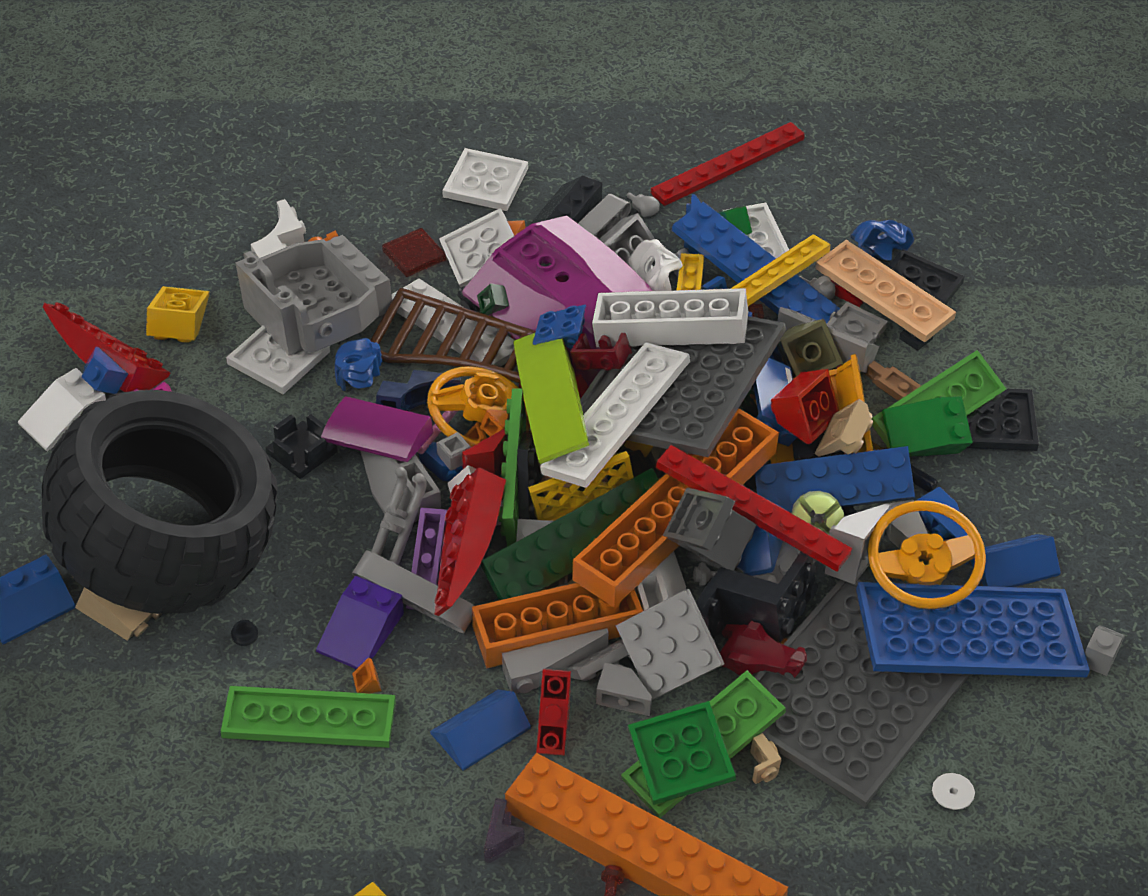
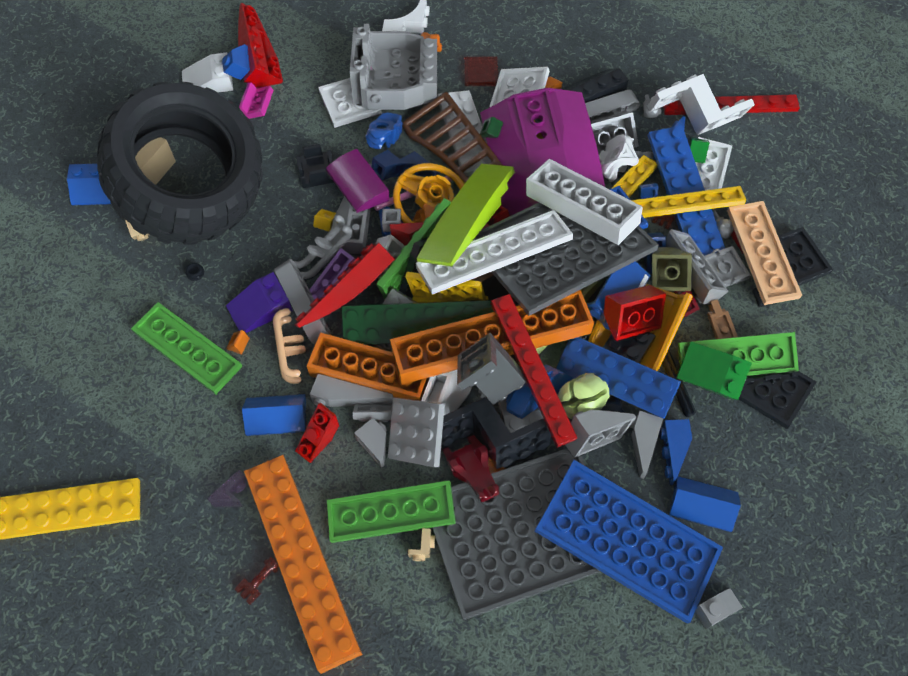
camera: 35 degrees right, 15 degrees up
(176, 314) = (313, 44): yellow slope -> none
(360, 498) = (324, 219): none -> yellow slope
(433, 653) = (289, 375): none -> light nougat piece
(485, 179) = (561, 42): white plate -> none
(561, 324) = (513, 169): blue hinge -> none
(603, 358) = (522, 205): dark red window -> none
(681, 752) = (367, 511): green plate -> none
(702, 173) = (699, 104): none -> white bracket
(846, 430) = (647, 345): tan slope -> none
(895, 236) = (791, 211): blue piece -> none
(940, 554) = (647, 476): light orange piece -> none
(953, 791) = (529, 648): white piece -> none

